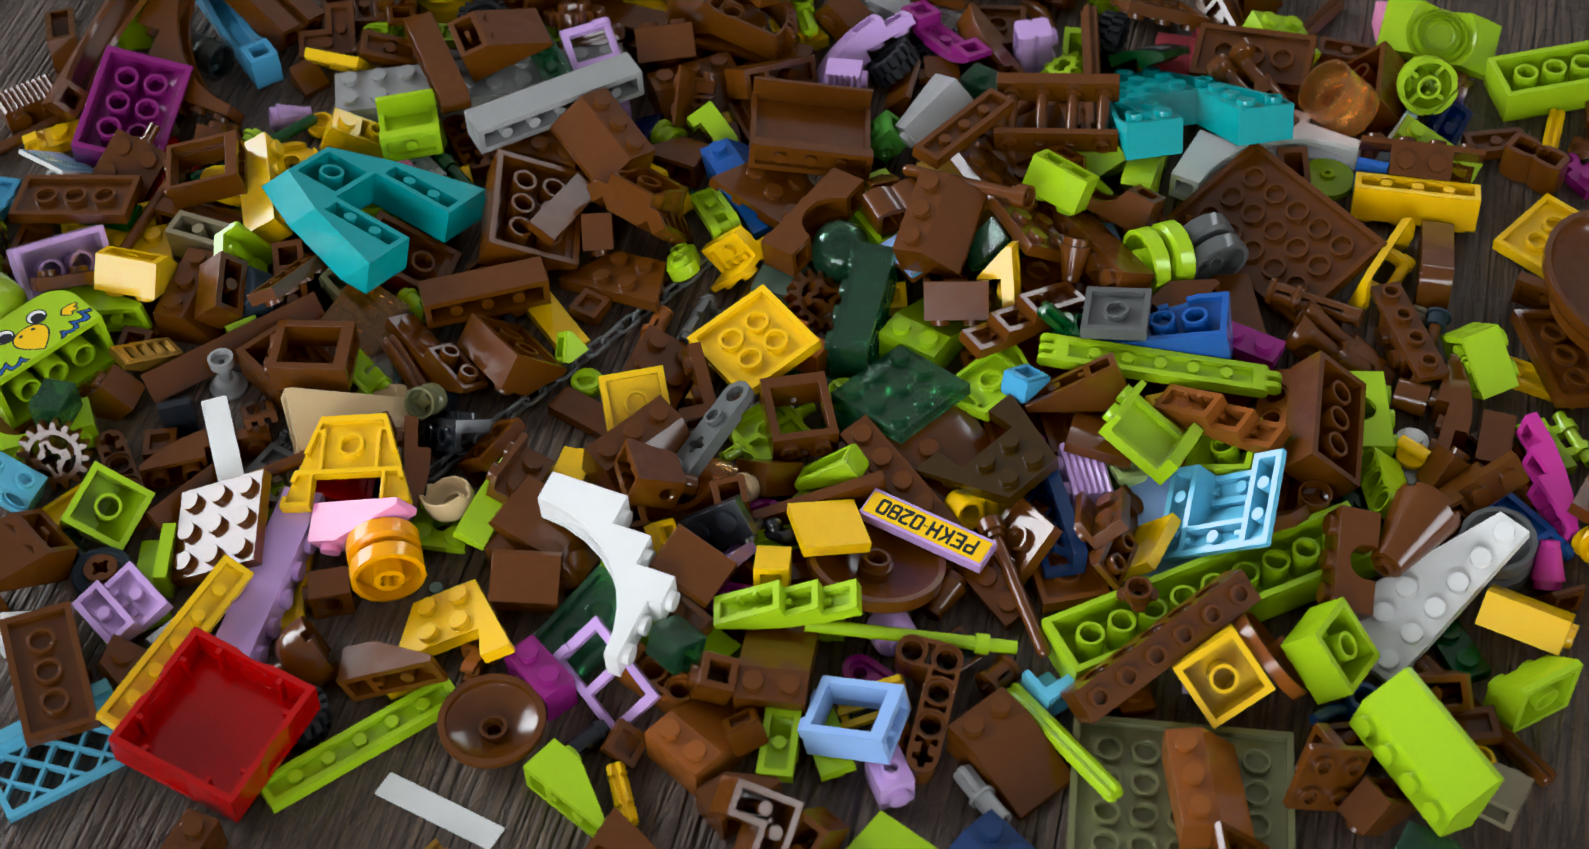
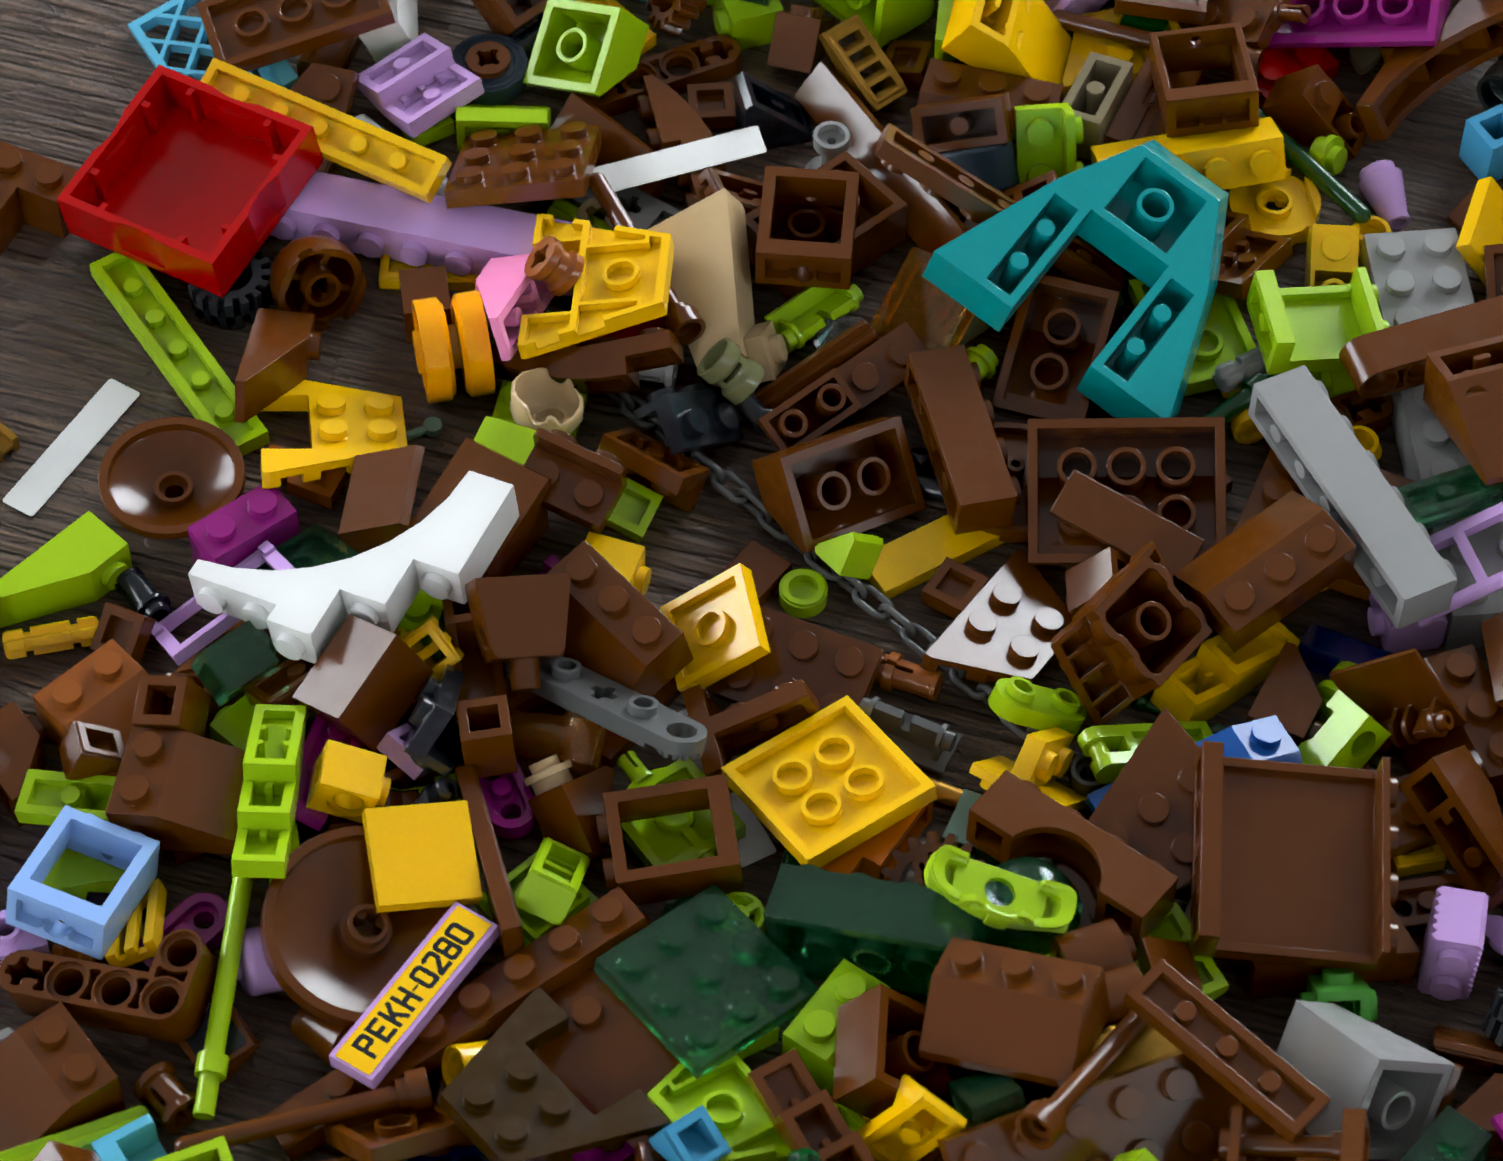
camera: 90 degrees right, 5 degrees up
(346, 478) = (554, 266): none -> dark orange wheel
(861, 219) = (1034, 904): none -> lime piece

